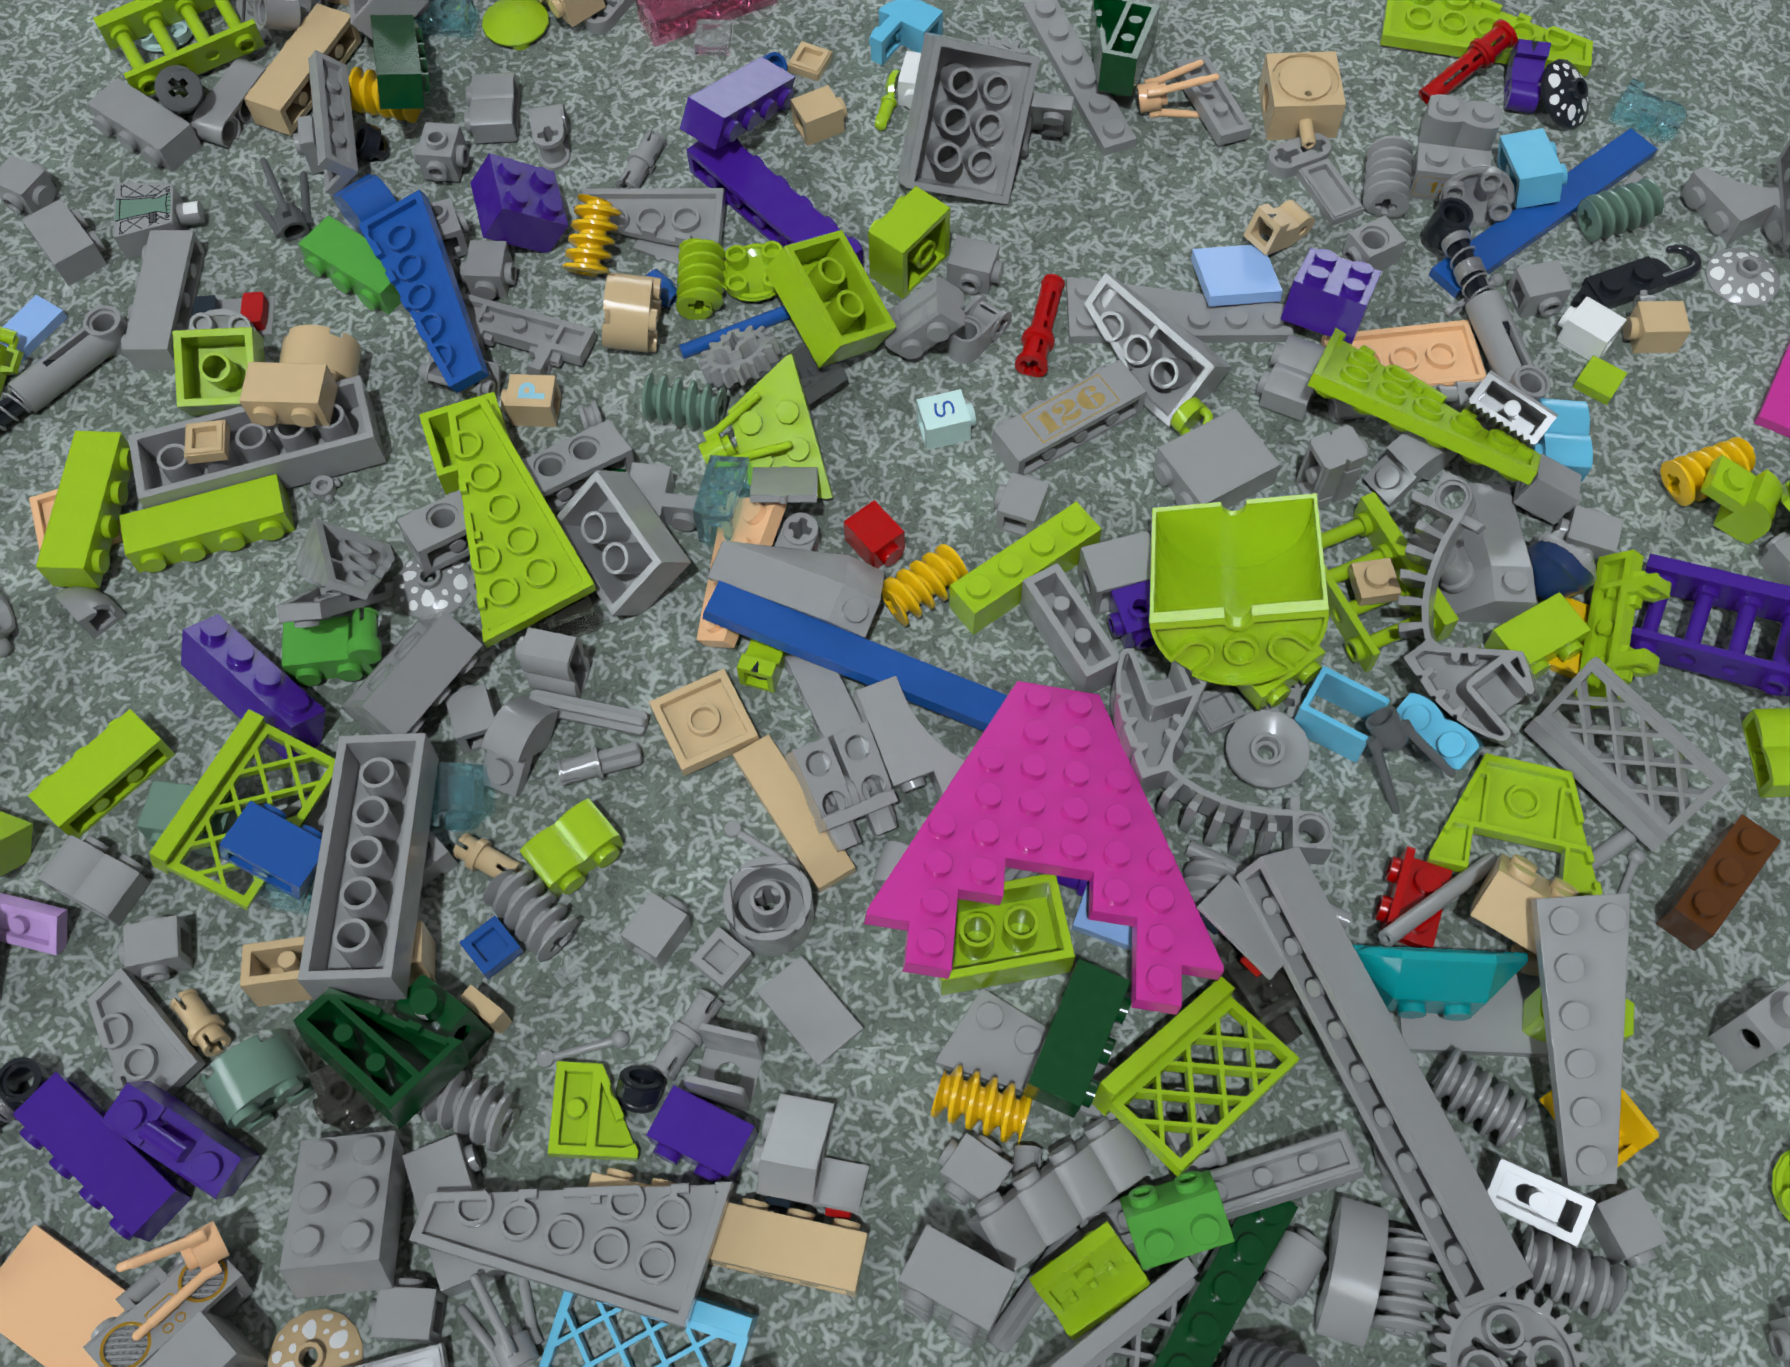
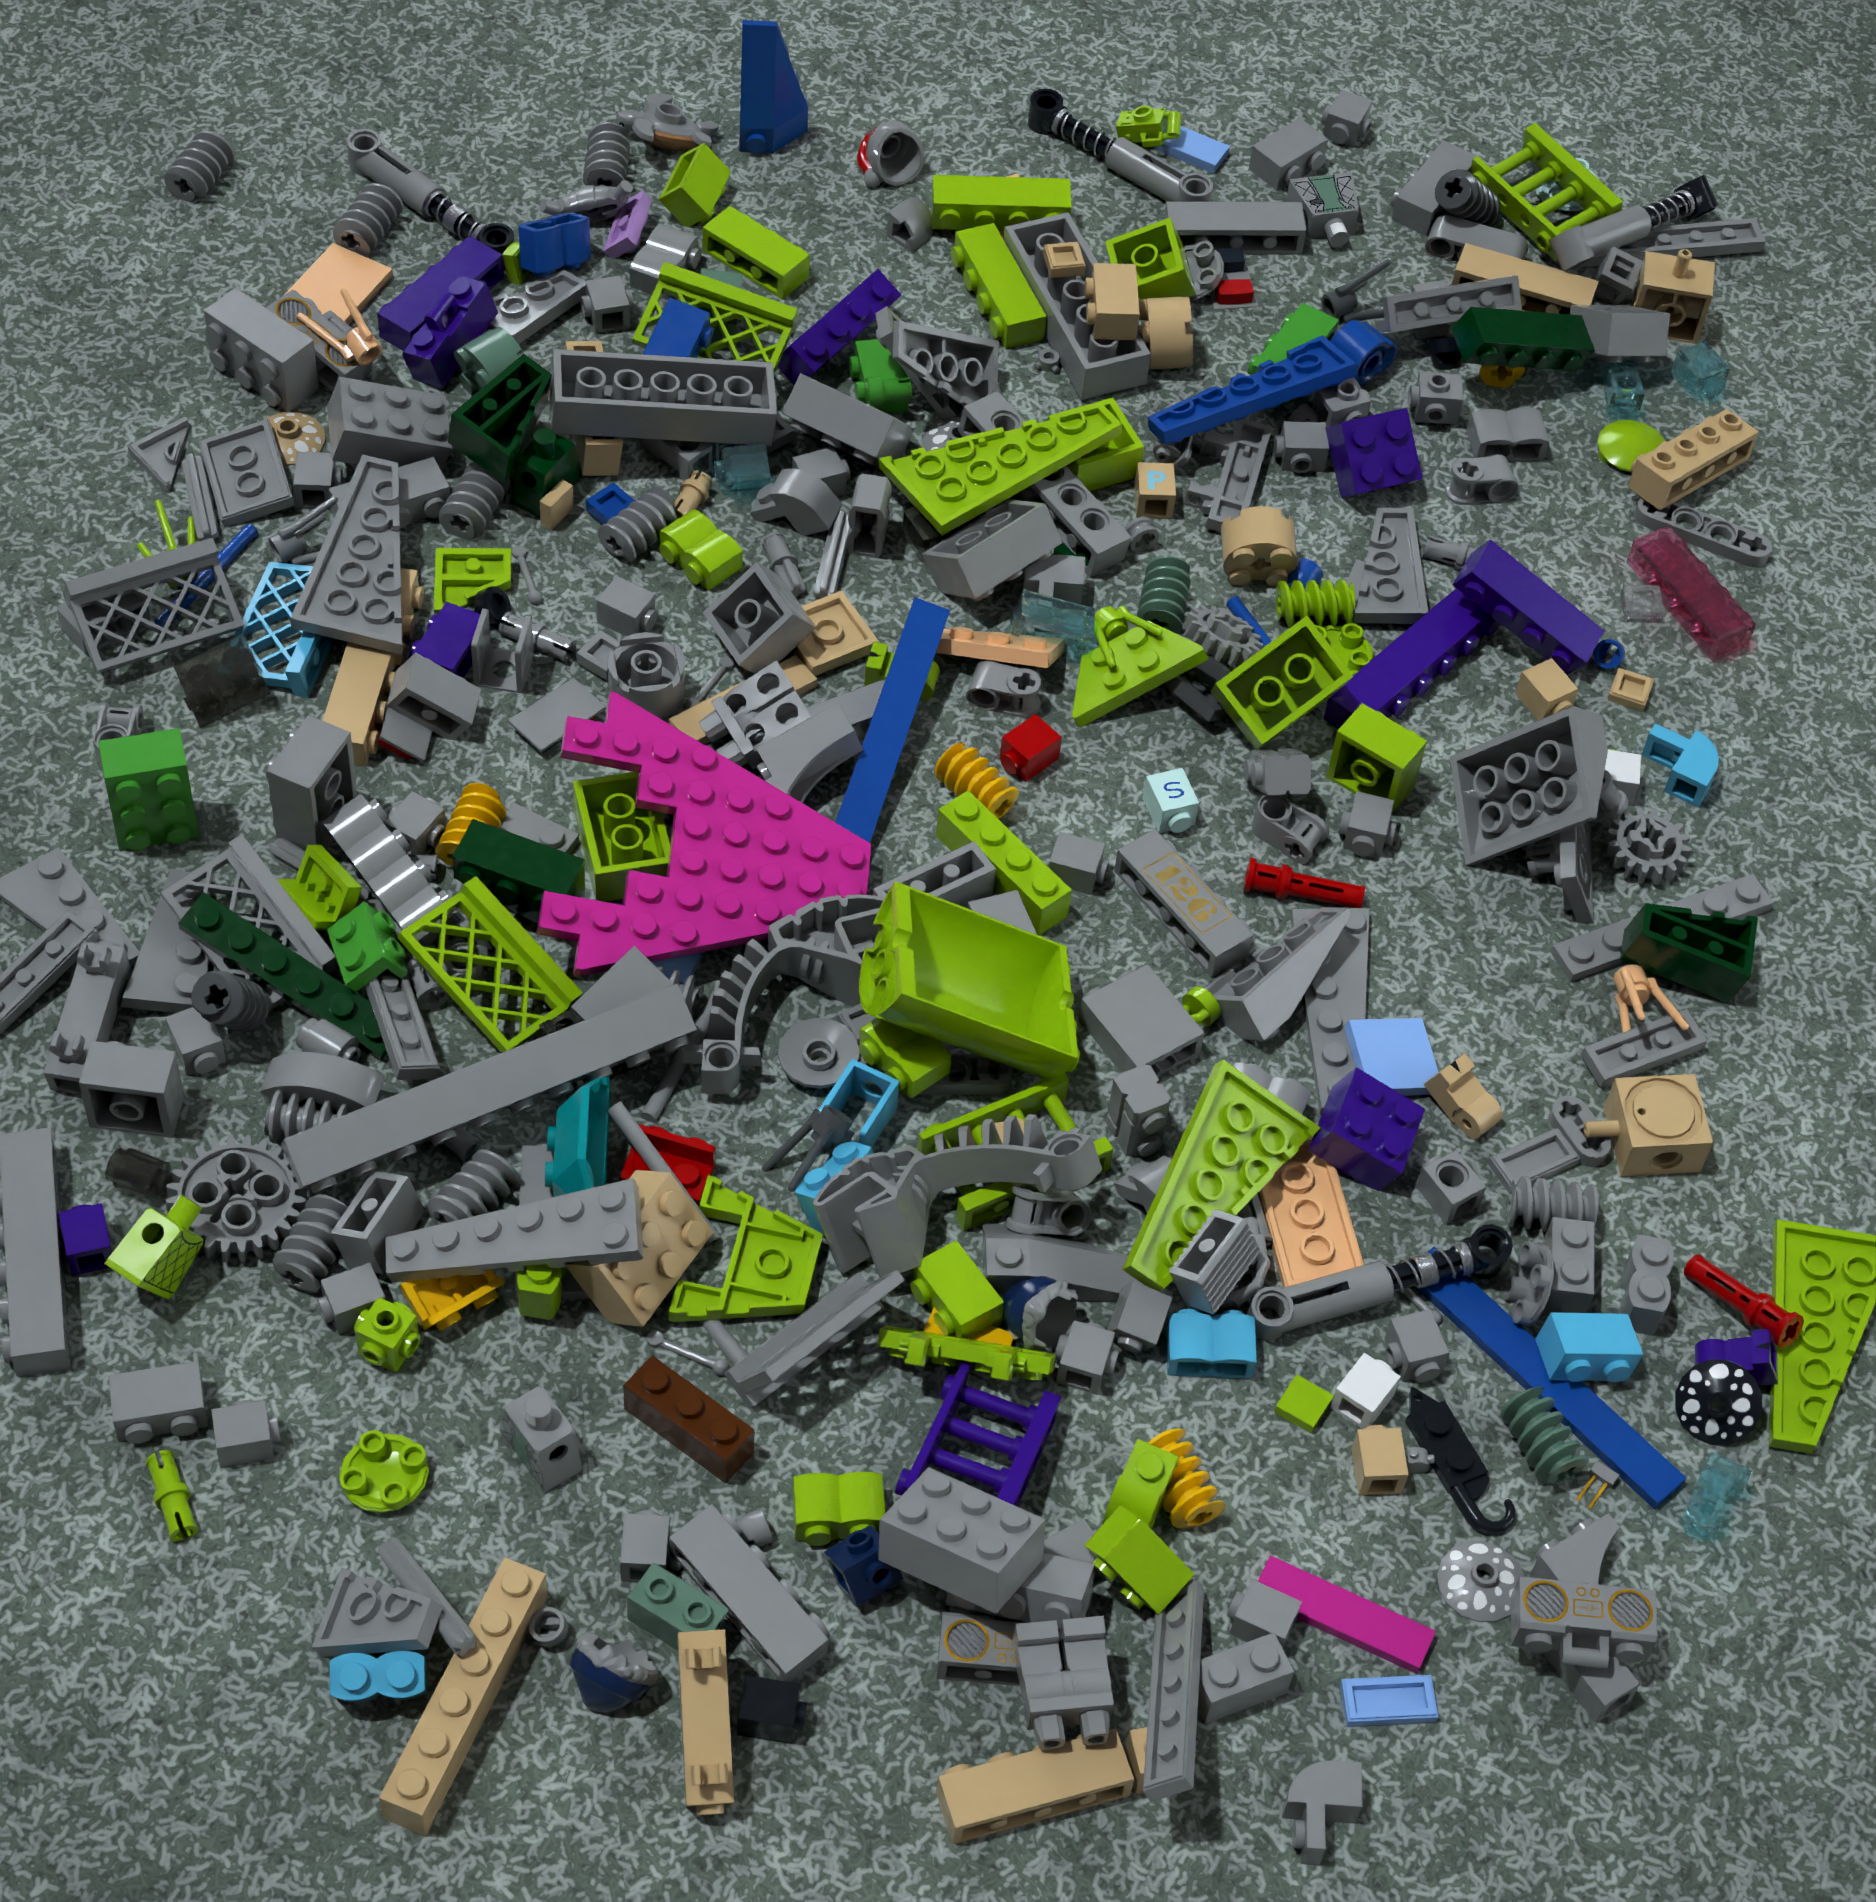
camera: 80 degrees right, 10 degrees down
(46, 1006) = (554, 243): none -> blue brick
(59, 1057) = (512, 264): none -> lime tile
(202, 1025) = (544, 340): tan pin -> none
(591, 236) = (1347, 516): yellow piece -> none
(702, 780) = (759, 619): none -> light grey brick
(784, 484) = (1066, 662): light grey piece -> none
(811, 582) = (961, 687): light grey wedge -> none
(1658, 1180) = (387, 1334): none -> lime brick

